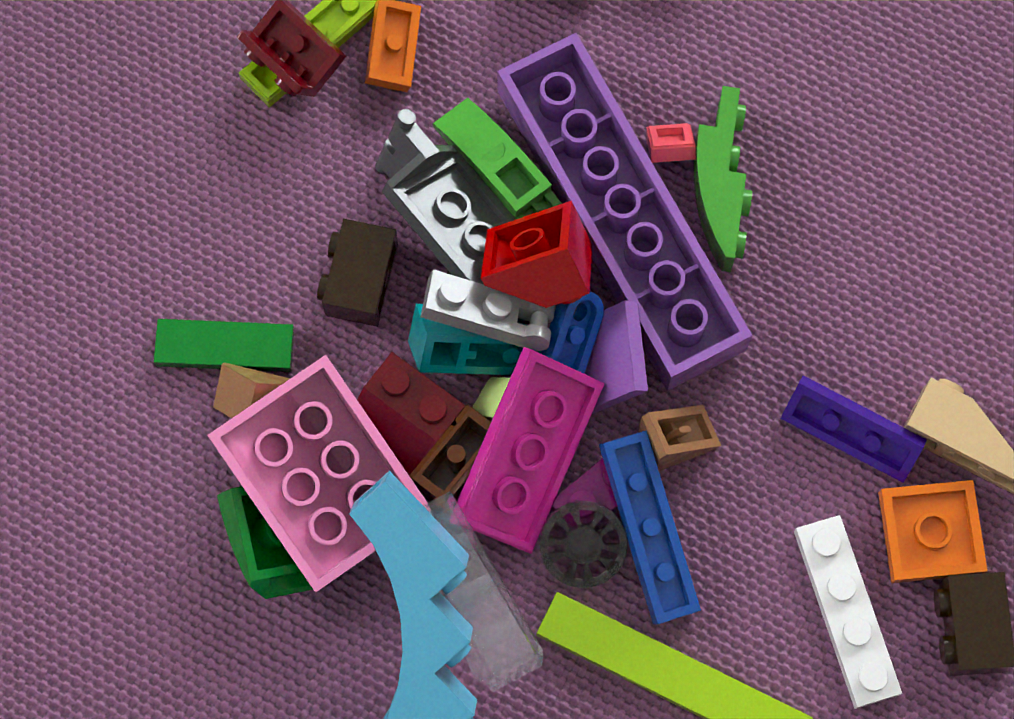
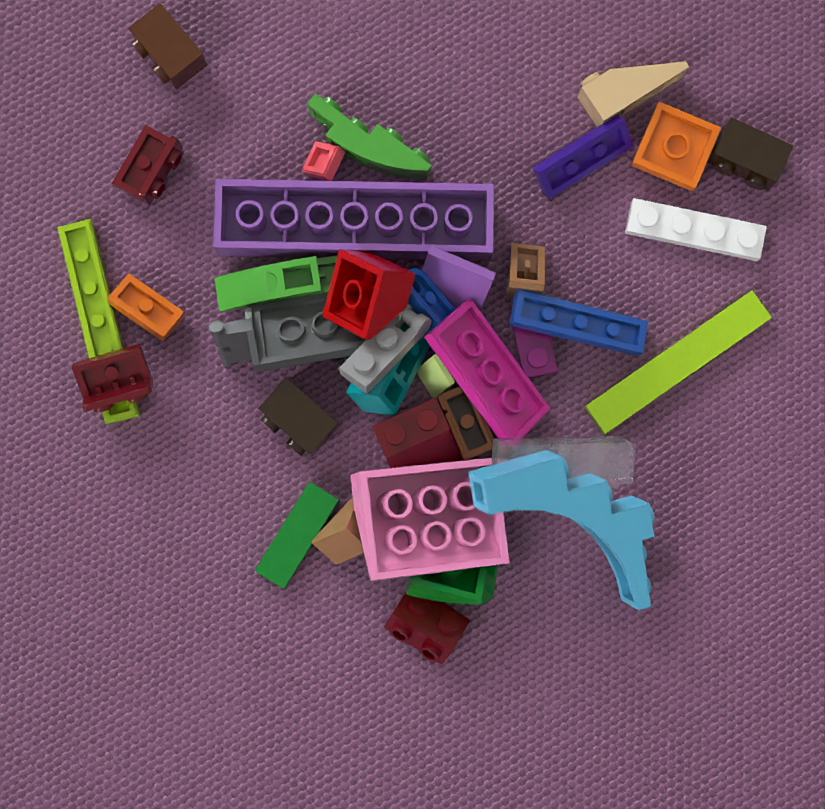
camera: 65 degrees left, 10 degrees up
(195, 547) = (427, 626): none -> dark red bracket
(583, 544) = (564, 371): clear smoke wheel -> none

